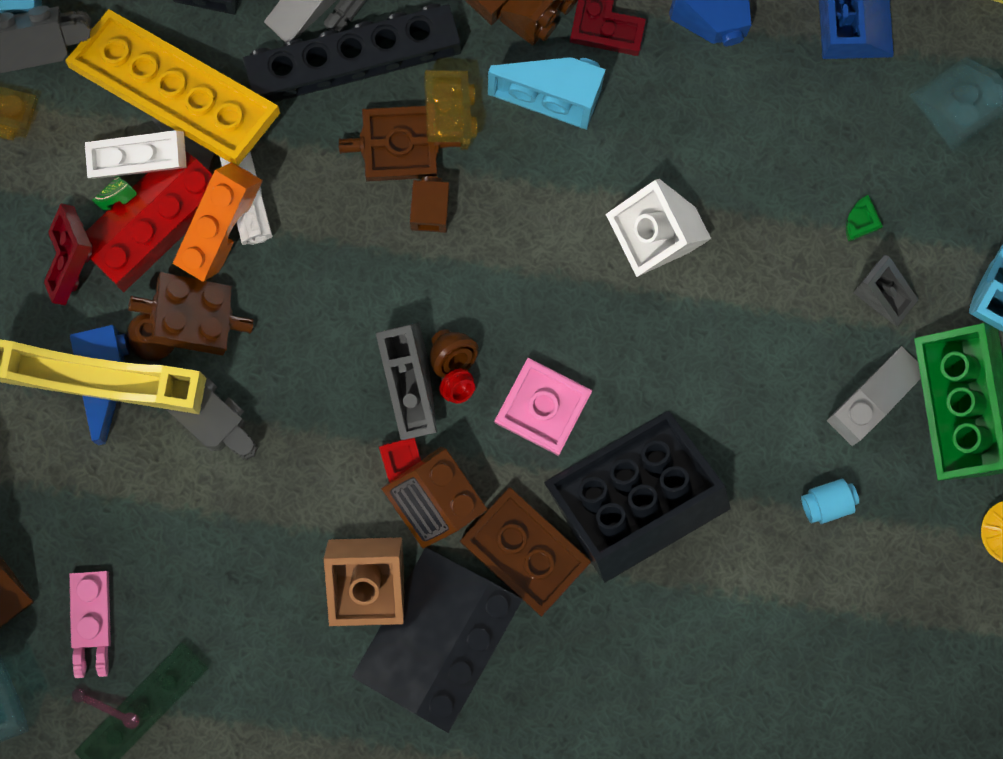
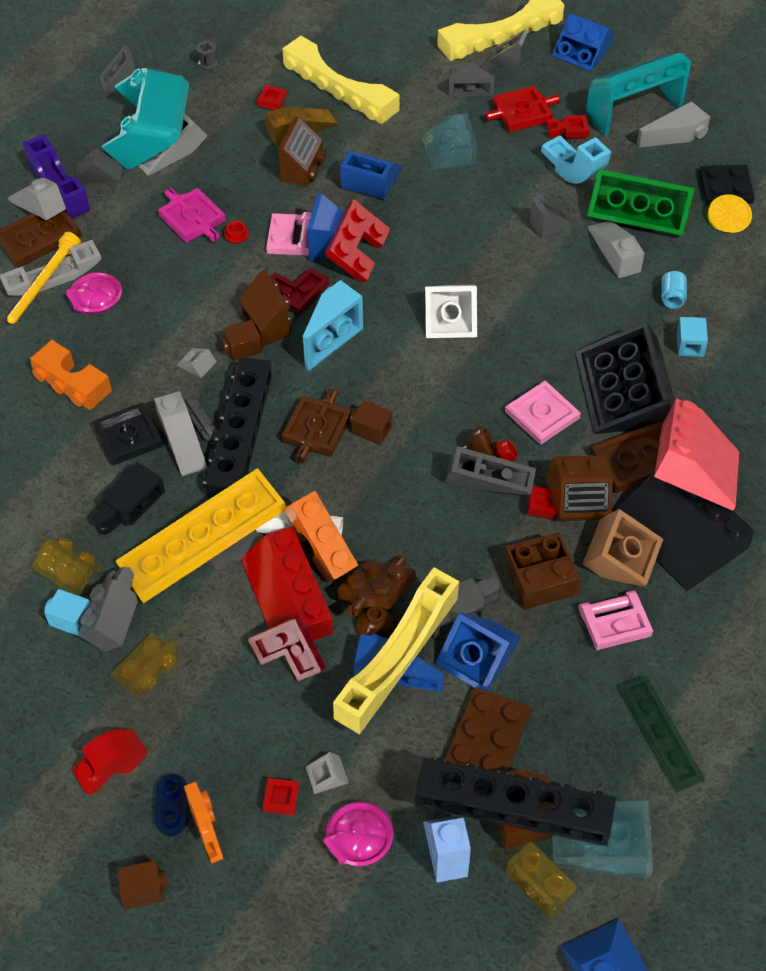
camera: 60 degrees left, 25 degrees down
(57, 518) = (489, 731): none -> reddish brown plate
(90, 619) = (578, 743): bright pink hinge -> none
(115, 191) = (256, 606): green tile -> none
(129, 720) = (668, 736): clear pink hinge -> none
(135, 154) = (238, 576): white plate -> none
(158, 465) = (477, 650): none -> blue slope
(260, 614) = (619, 626): none -> bright pink plate
(294, 494) = (542, 571): none -> reddish brown slope
(448, 107) = (310, 383): clear yellow bracket -> none
(527, 628) = (697, 455): none -> coral slope
(741, 41) = (343, 249): none -> red plate
(755, 552) = (692, 336): none -> medium azure brick
(862, 220) = (497, 215): green tile -> none

